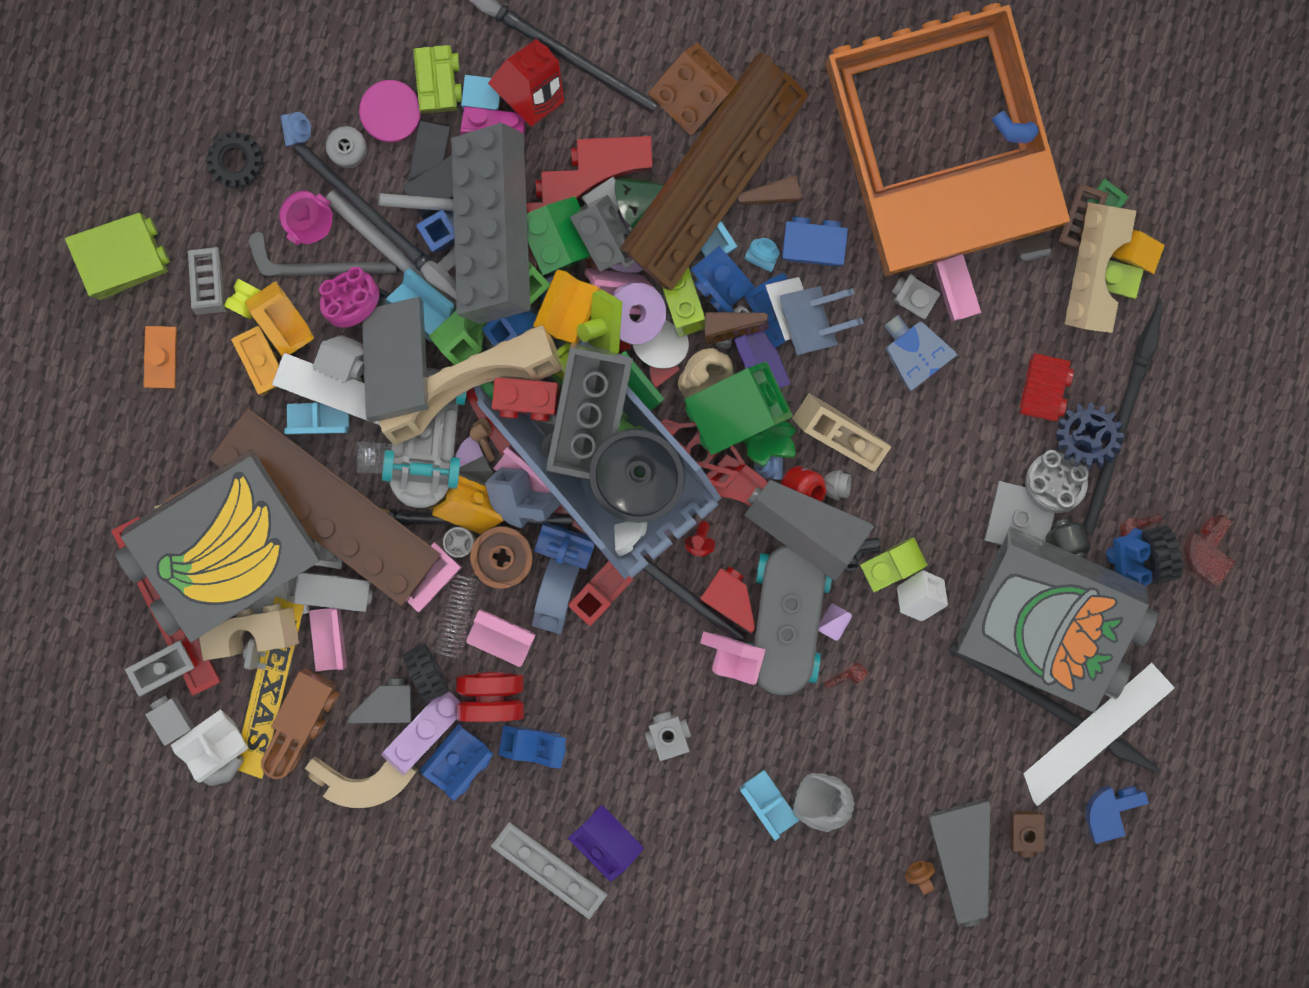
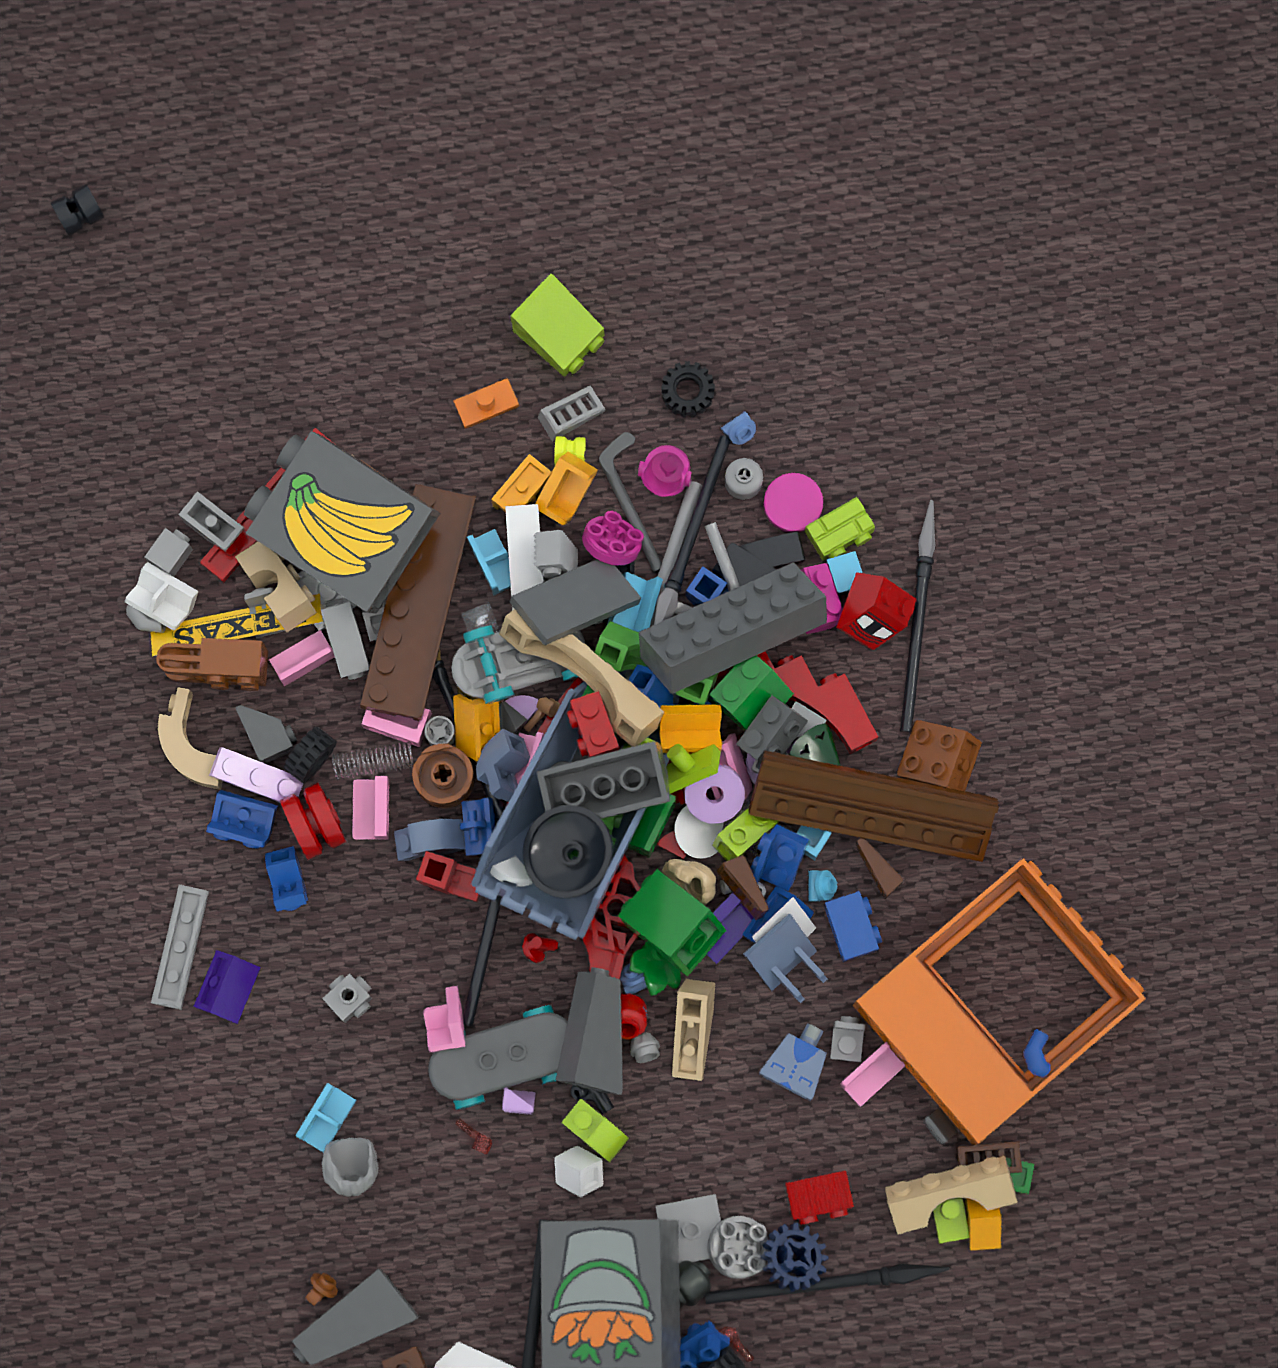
camera: 70 degrees right, 10 degrees down
(730, 597) = (498, 996): red slope -> none

